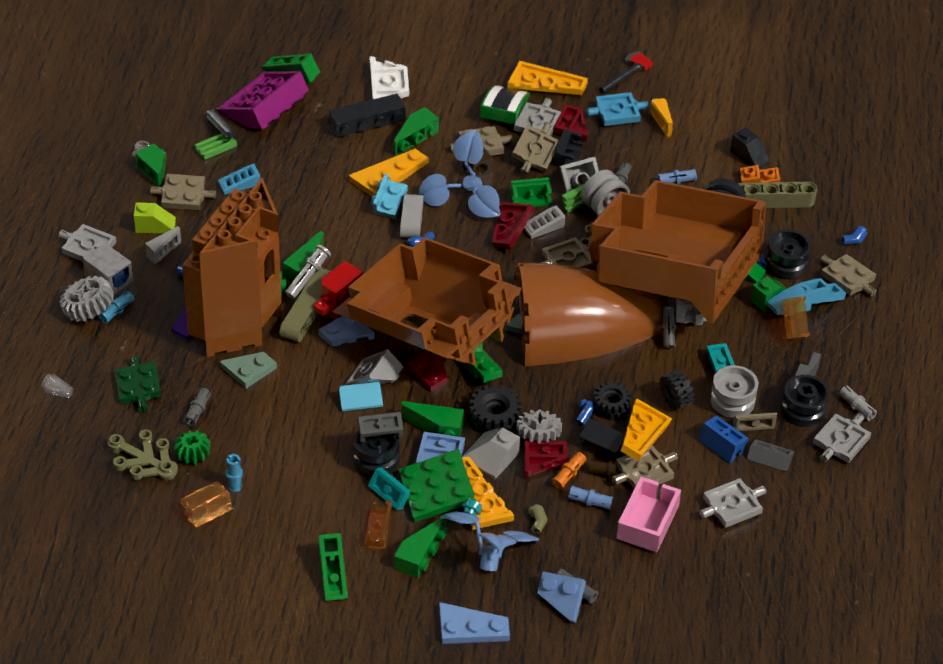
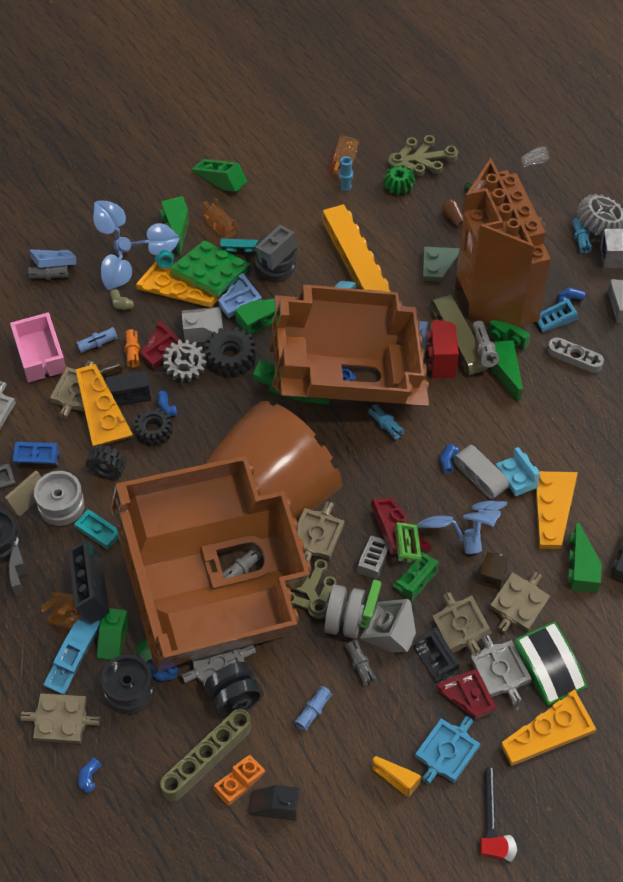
camera: 140 degrees right, 10 degrees up
(185, 391) = (453, 211): none -> reddish brown cone
(197, 407) = (432, 208): dark grey pin -> none
(314, 402) = (353, 249): none -> light orange brick
(471, 626) = (83, 210): medium blue wing -> none
(518, 203) = (400, 542): none -> bright green tile
(764, 314) = (88, 582): none -> black brick

